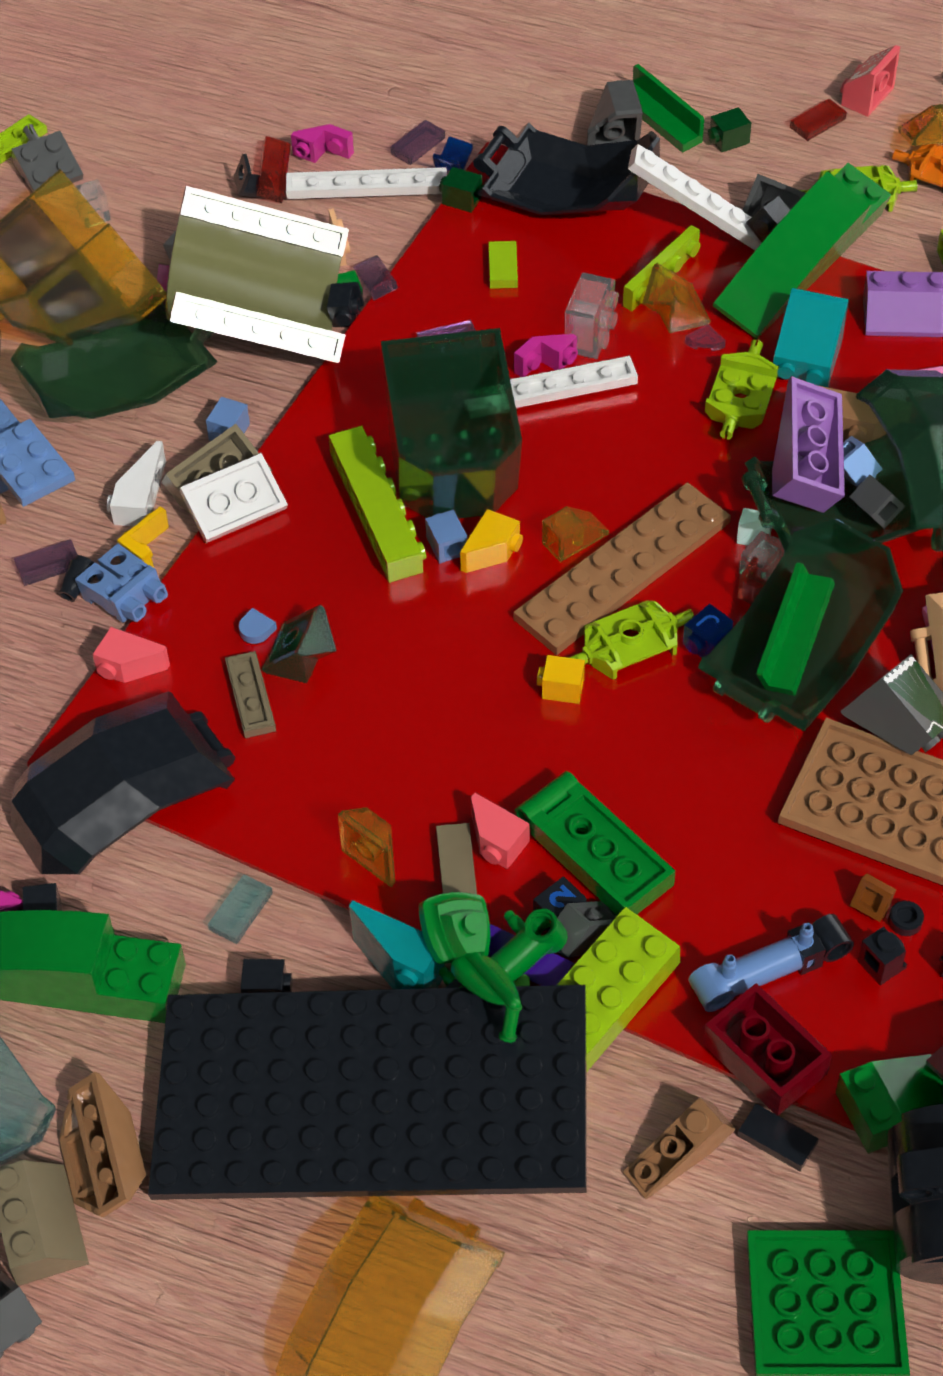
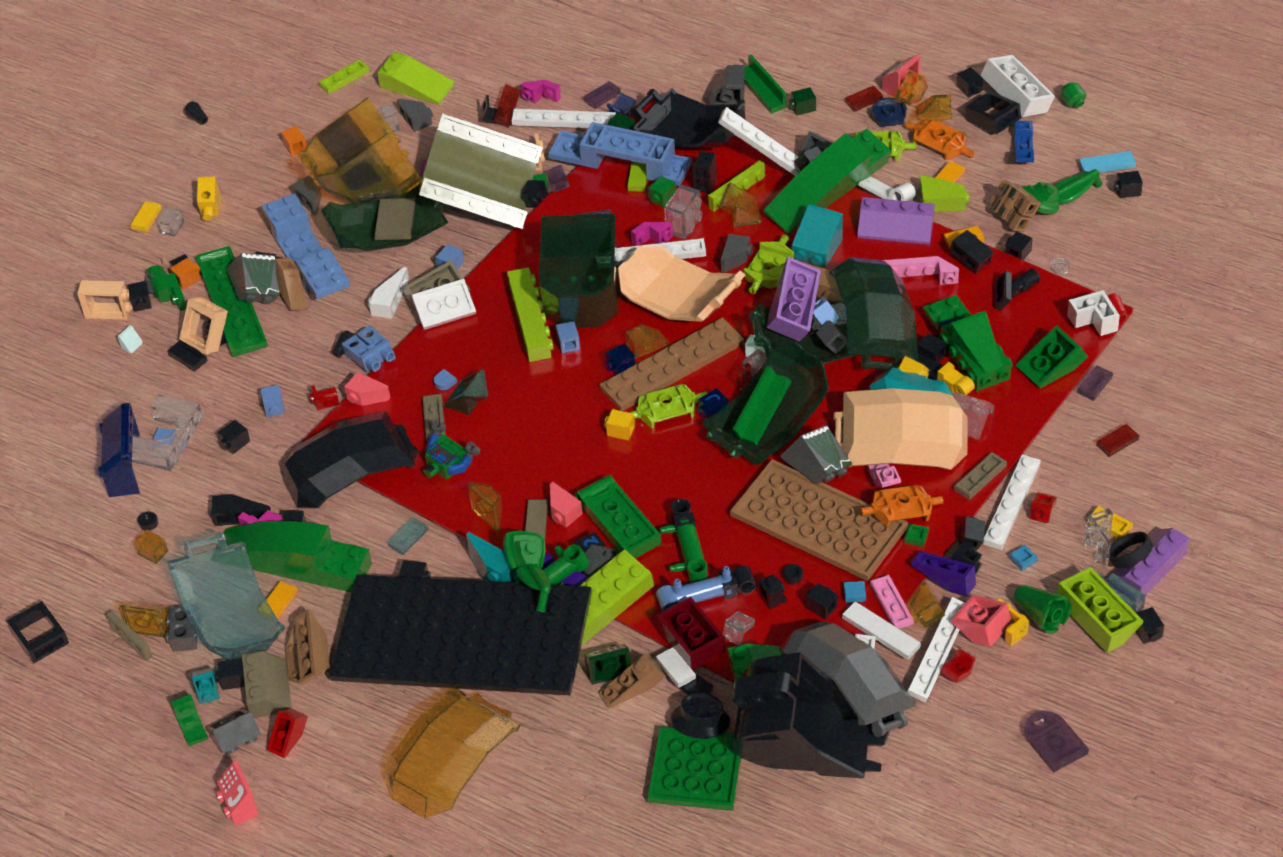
camera: 10 degrees right, 5 degrees down
(38, 1046) = (281, 597): none -> light orange tile
(44, 157) = (363, 87): dark grey plate -> none
(45, 562) = (326, 334): clear purple tile -> none
(59, 676) = (324, 398): none -> red bracket
(87, 1311) = (286, 732): none -> red slope
(120, 138) = (413, 79): none -> lime slope
(130, 362) = (395, 219): none -> dark tan tile
(131, 192) = (415, 114): none -> dark grey slope
(143, 533) = (387, 321): yellow bracket -> none
(284, 761) = (445, 455): none -> torso
(472, 215) = (622, 143): none -> medium blue bracket
(491, 542) = (593, 343): yellow slope -> none
(539, 567) = (619, 359): none -> clear blue brick
(547, 285) = (662, 191): none -> green brick
(609, 439) = (672, 285): none -> light nougat windscreen
(610, 248) = (704, 172): none -> black hinge
(632, 1115) = (607, 663): none -> dark green slope
(685, 373) = (735, 252): none -> dark grey slope
(705, 338) = (755, 231): clear pink tile -> none
(711, 855) = (686, 532): none -> green piece
(749, 1112) = (675, 667): none -> white tile
(814, 1205) = (700, 716): none -> black wheel
(840, 1026) = (736, 627): none -> clear bracket
(873, 144) = (883, 118): none -> dark blue plate
(873, 897) = (775, 560): dark orange tile -> none
(892, 98) = (912, 88): none -> clear yellow slope
(918, 259) = (901, 193): none -> white door

